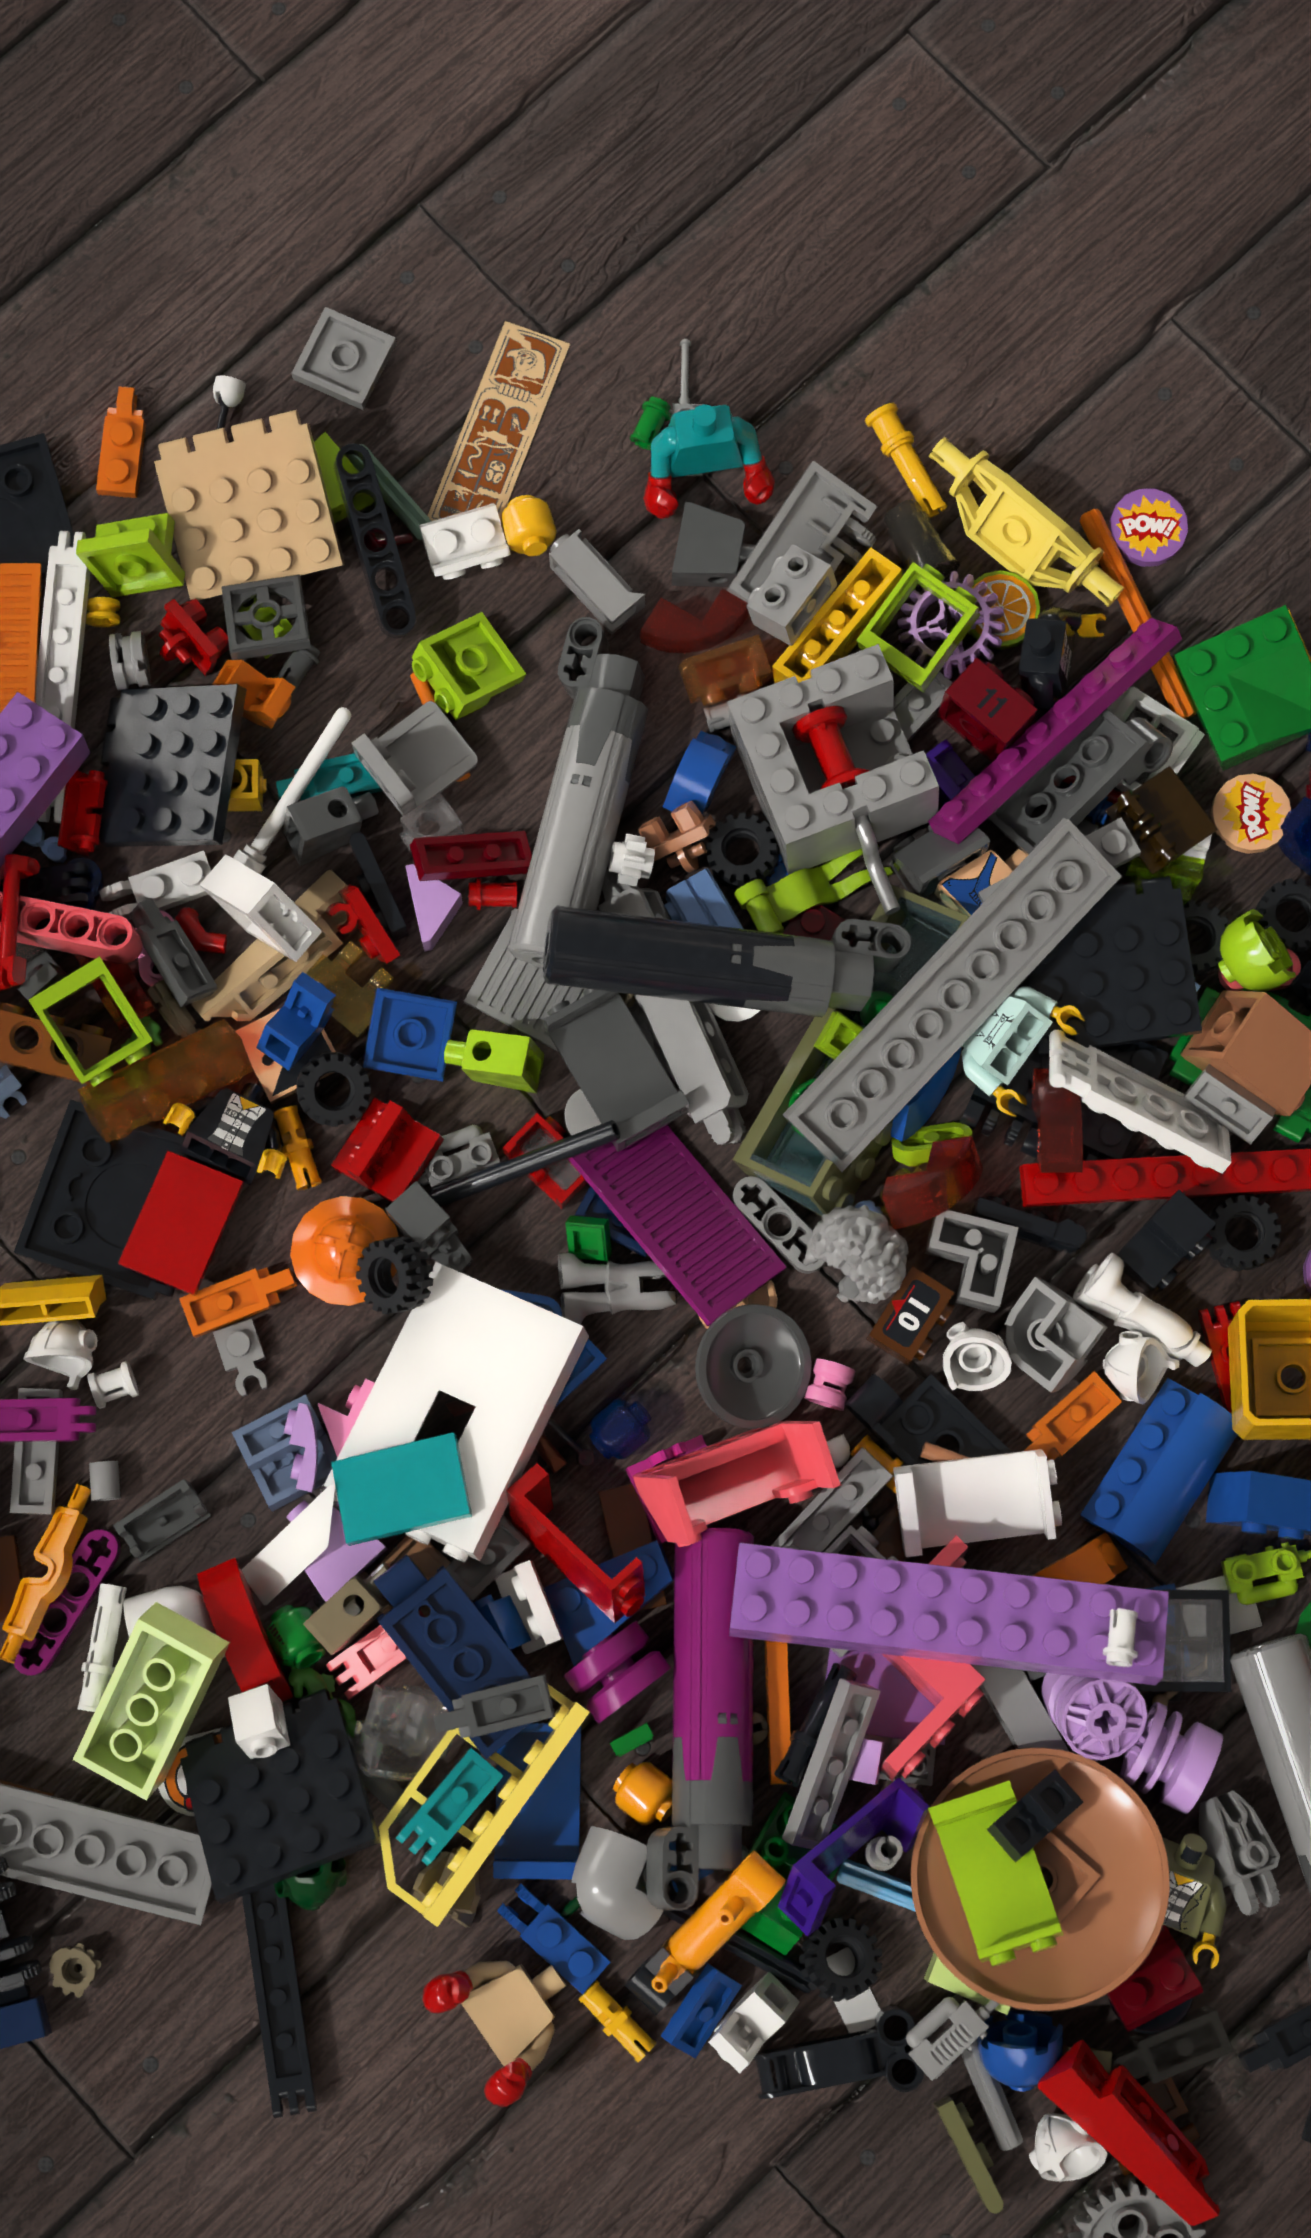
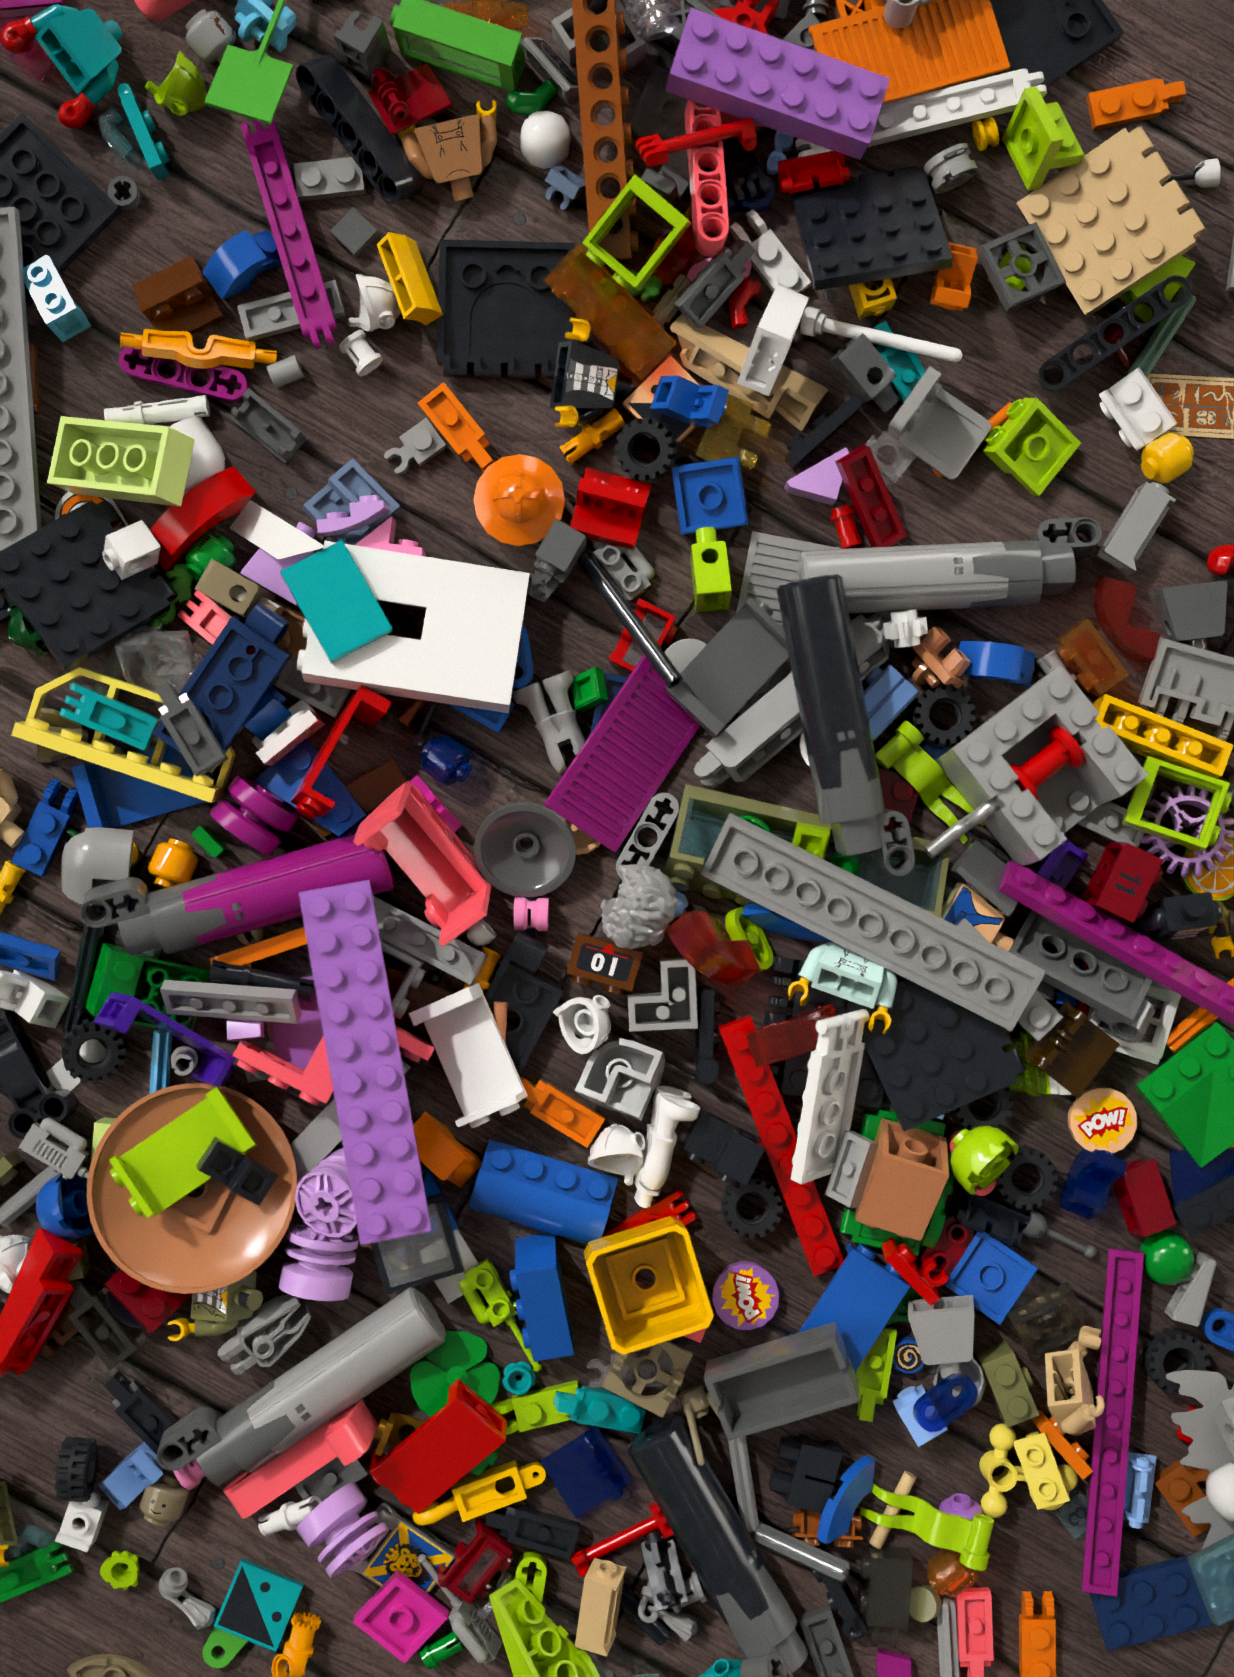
camera: 80 degrees right, 10 degrees up
(181, 1223) = (501, 363): red tile -> none
(187, 640) = (981, 209): red hips -> none
(298, 665) = (987, 308): dark grey pin -> none
(375, 939) = (778, 442): red plate -> none
(377, 1277) = (505, 543): black tyre -> none
(705, 1932) = (60, 930): light orange piece -> none
(791, 594) = (1171, 691): light grey brick -> none
(1121, 1638) = (378, 1204): white pin -> none

